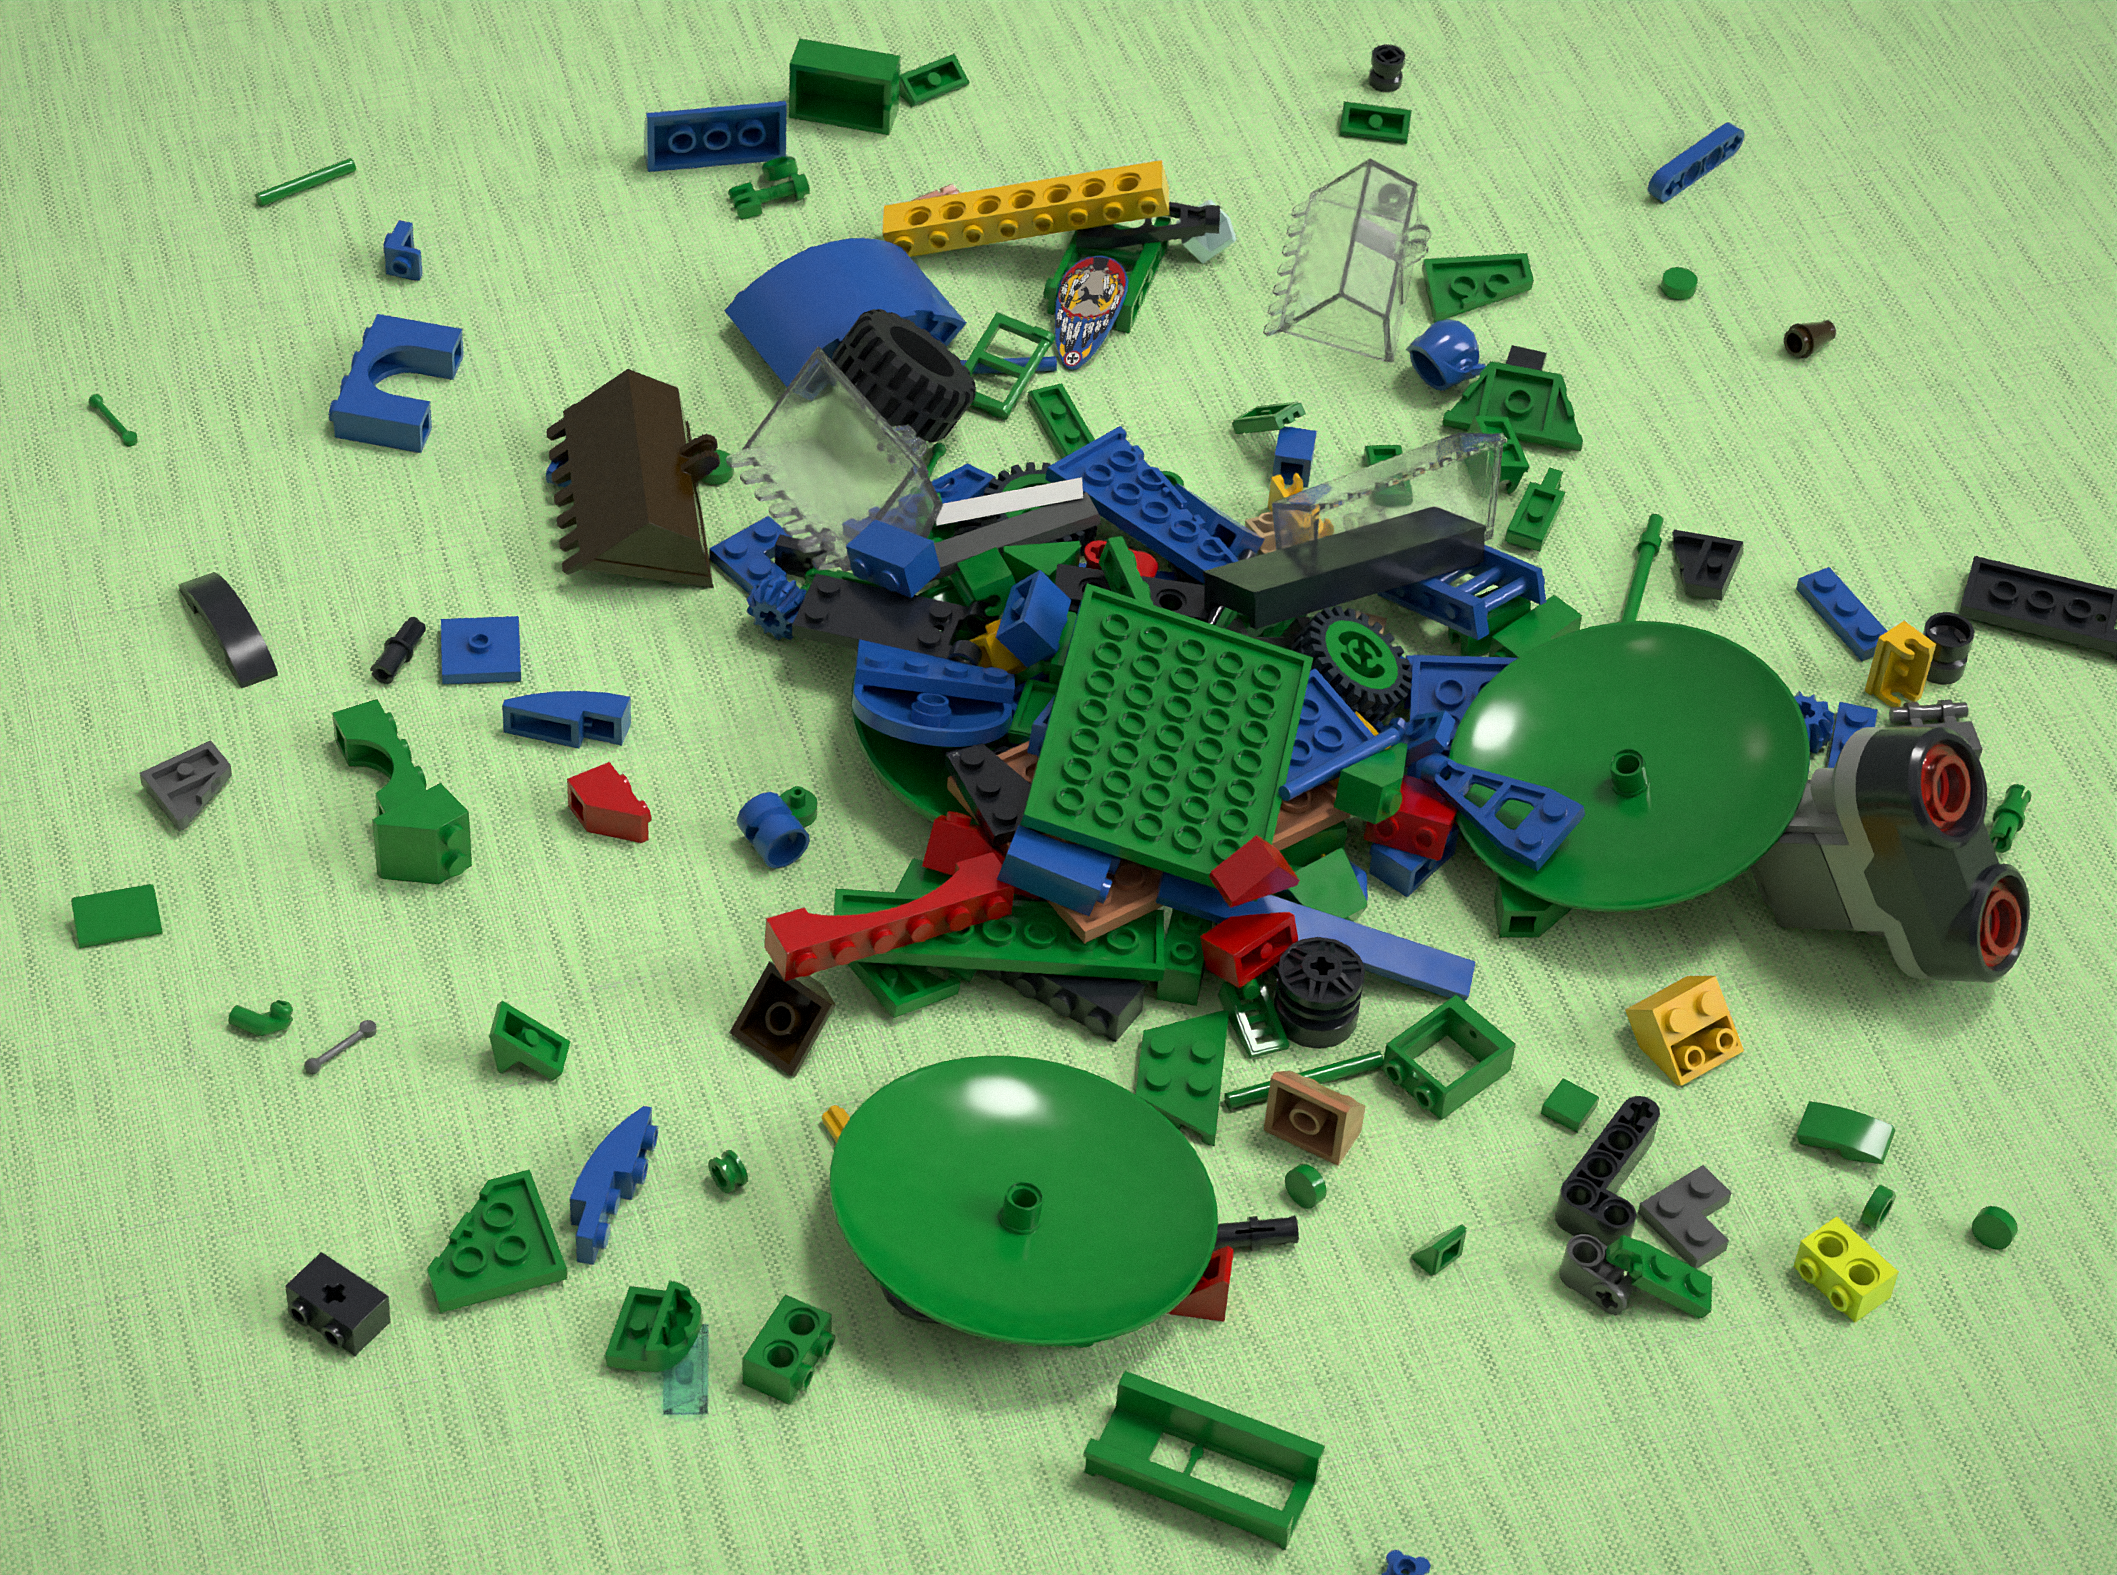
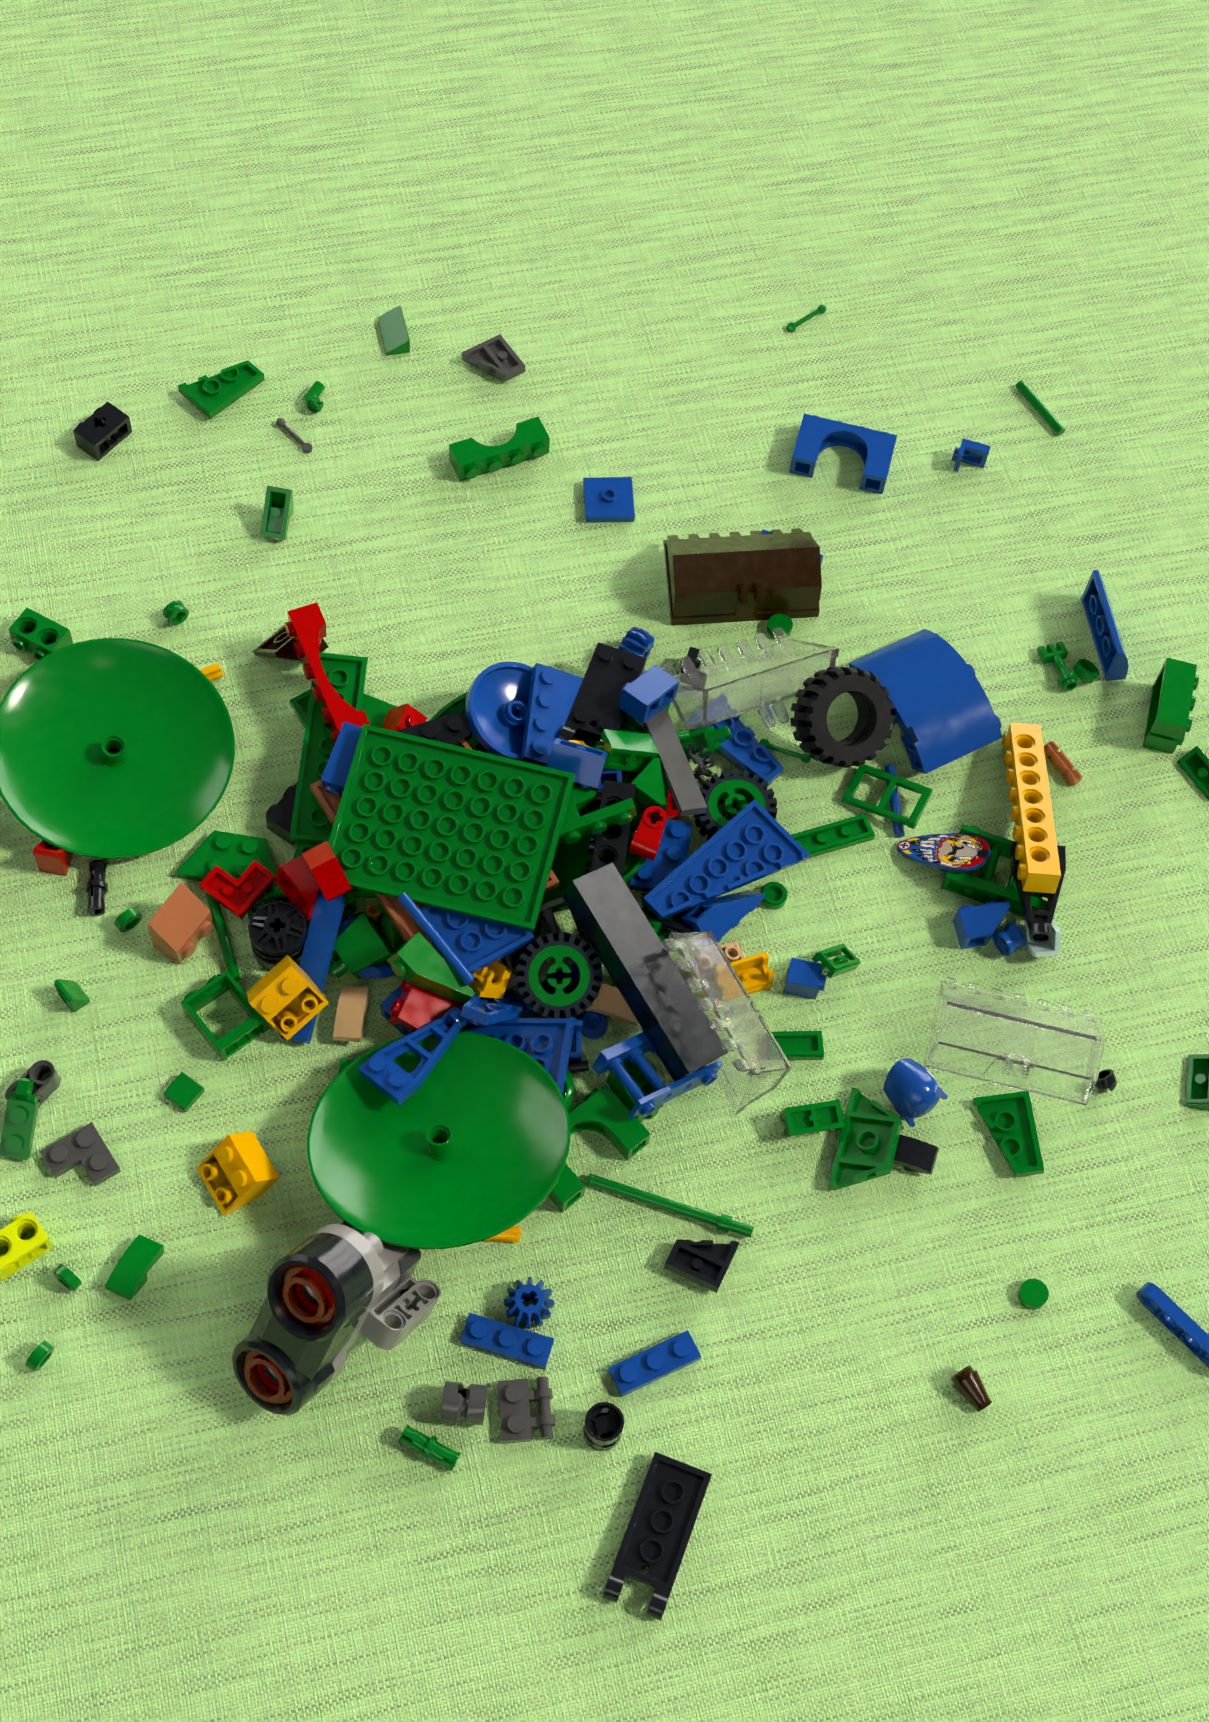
camera: 90 degrees right, 15 degrees up
(232, 628) = (624, 372): black slope -> none
(239, 1144) = (221, 390): none -> green wing
(398, 650) = (605, 457): black axle -> none
(423, 838) = (435, 463): green slope -> none
(498, 1247) = (136, 504): green plate -> none
(568, 717) = (543, 541): blue slope -> none
(607, 805) = (471, 557): red slope -> none
(609, 1176) = (181, 555): blue slope -> none
(654, 1328) = (64, 572): green slope -> none
(687, 1382) = (37, 593): clear light blue slope -> none
(749, 553) = (695, 636): blue plate -> none
(773, 830) = (441, 641): blue wheel -> none
(802, 804) = (470, 661): green tile -> none
(1010, 501) = (709, 768): white sticker -> none
(1188, 289) = (979, 923): none -> blue slope
(1208, 265) = (1009, 939): none -> blue wheel
(1250, 1043) = (238, 894): none -> red plate
(1421, 968) = (286, 997): none -> yellow slope
(1431, 915) = (350, 1013): none -> tan slope
(1537, 512) = (755, 1144): green hinge -> none
(1588, 1194) = (119, 1107): black beam -> none
(1900, 664) = (580, 1381): yellow hinge -> none

